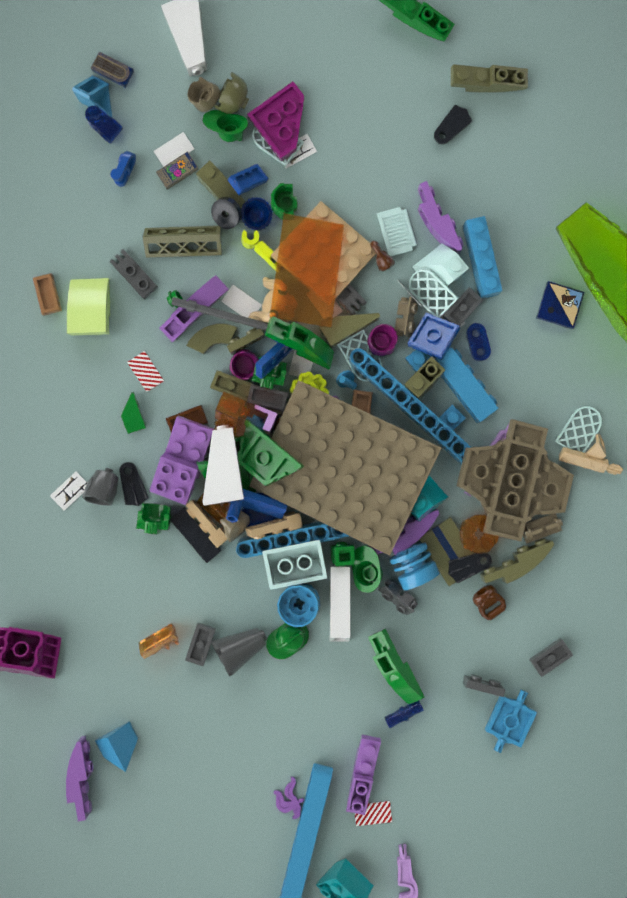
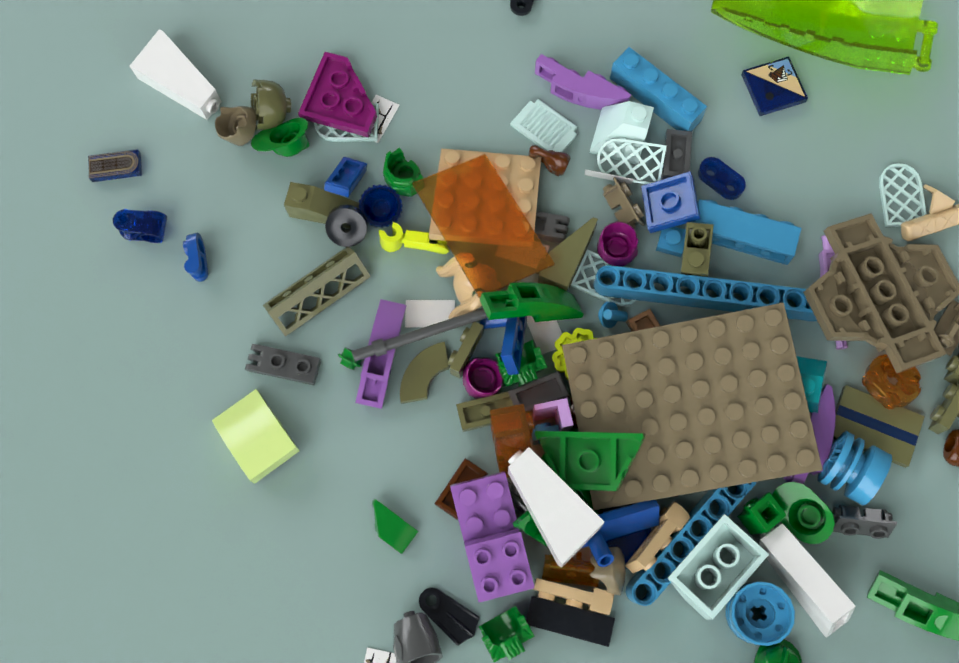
camera: 30 degrees left, 15 degrees down
(47, 294) = (194, 456): medium nougat tile -> none
(94, 93) = (107, 201): dark azure slope -> none
(145, 371) = (371, 466): sticker -> none
(173, 149) = (239, 203): white sticker -> none
(177, 170) = (258, 221): tile -> none
(452, 417) = (757, 273): dark azure plate -> none
(468, 566) = (911, 426): black piece -> none

